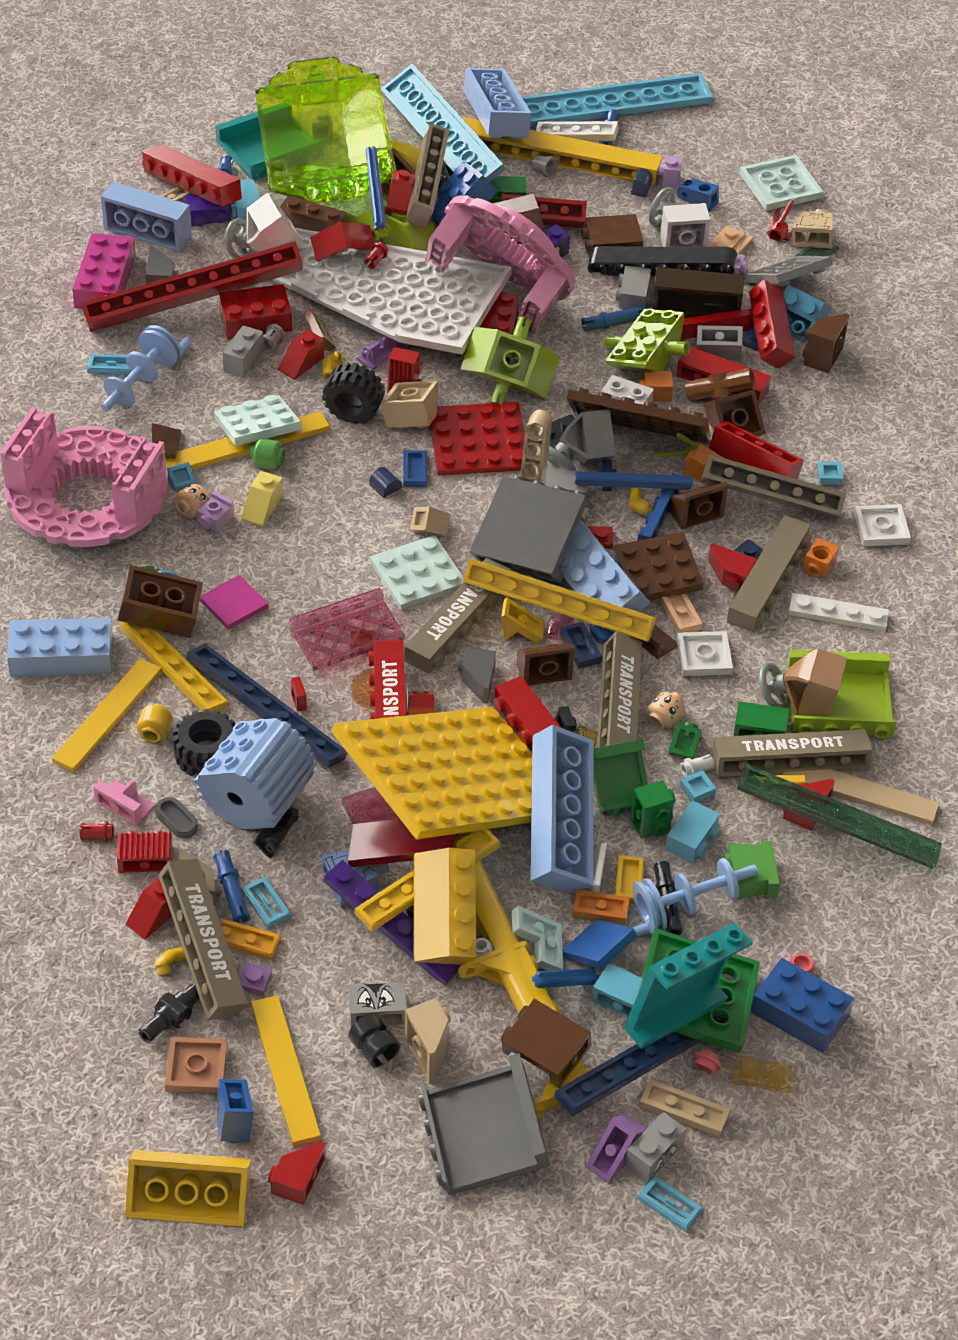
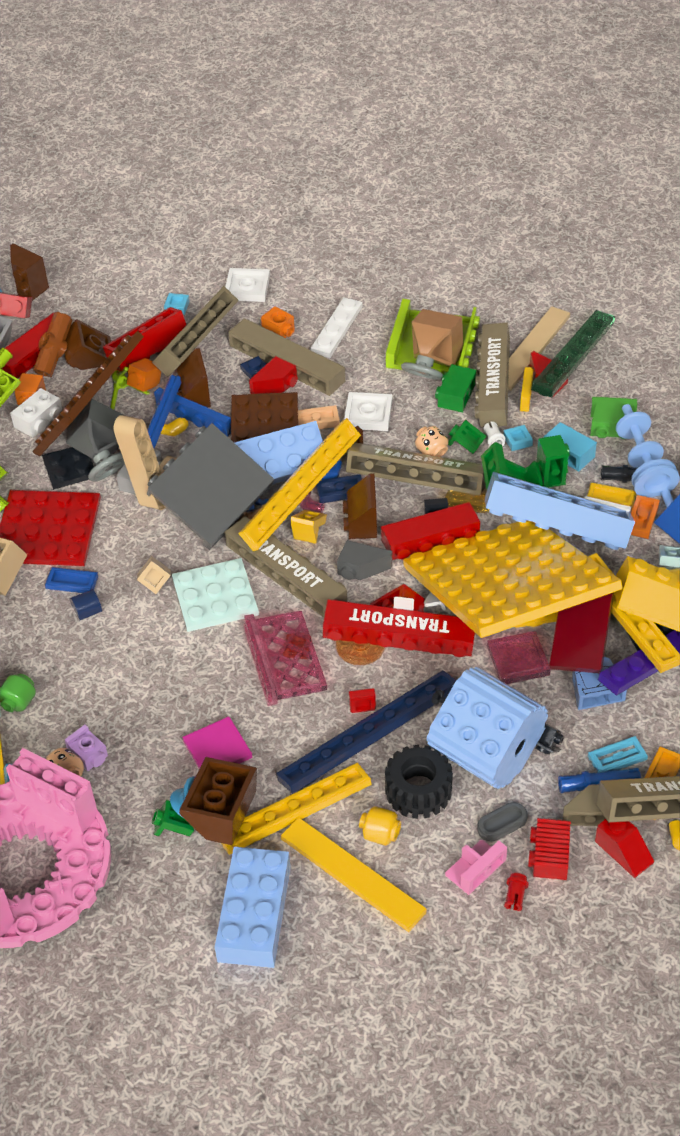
camera: 75 degrees left, 0 degrees up
(262, 498) = (80, 704): light yellow slope -> none

